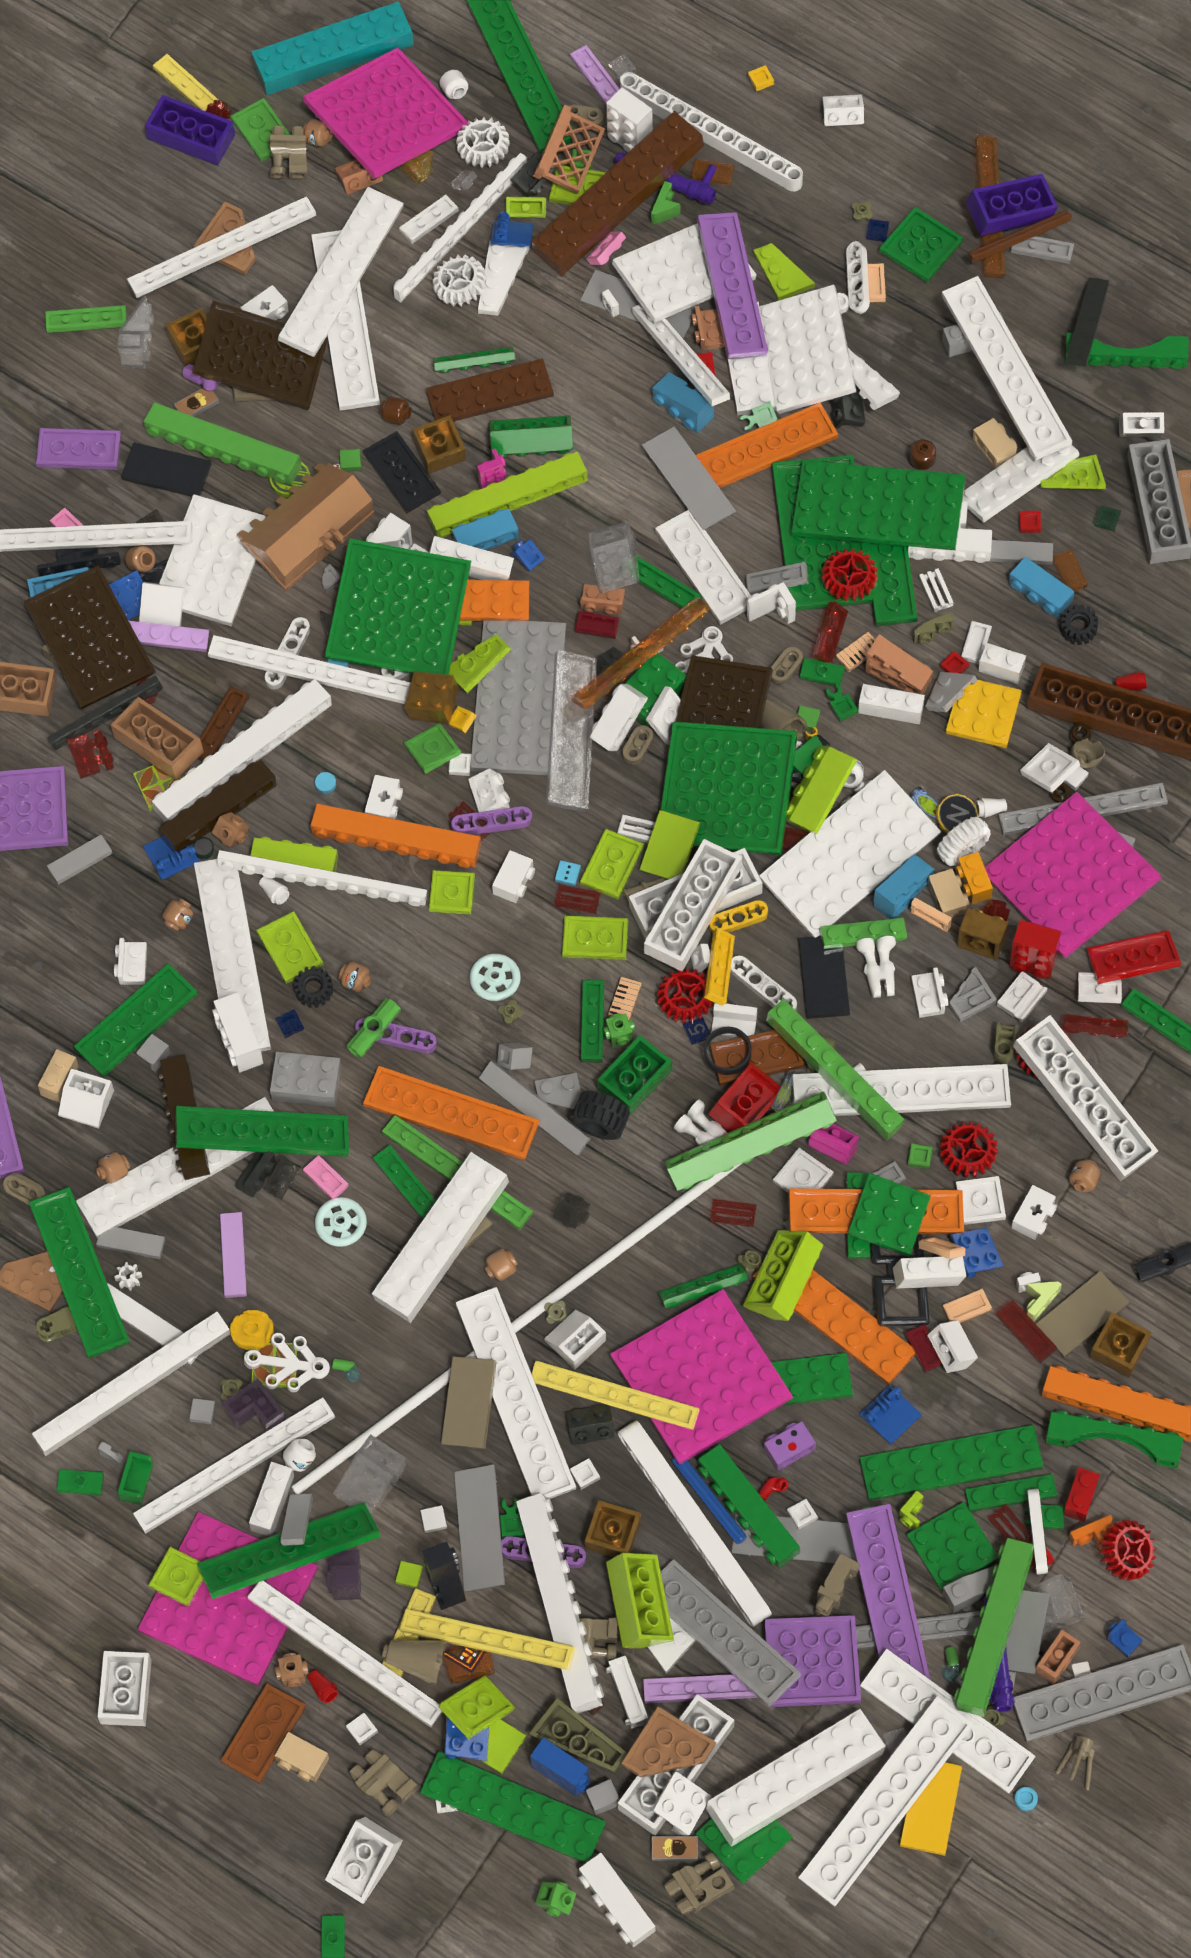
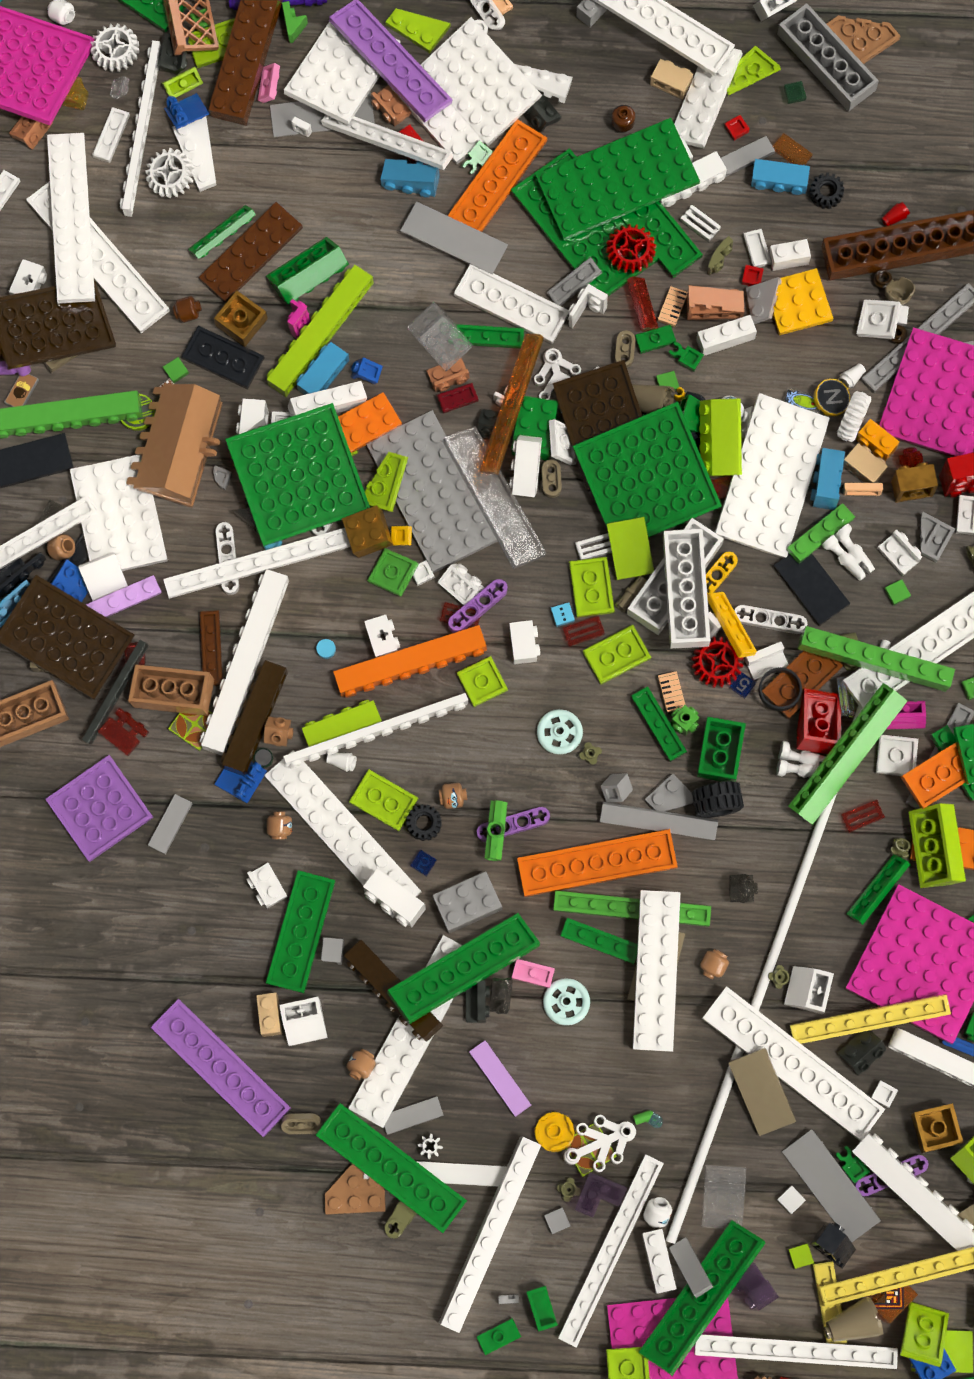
camera: 30 degrees left, 10 degrees up
(903, 1028) = (897, 592): none -> bright green tile

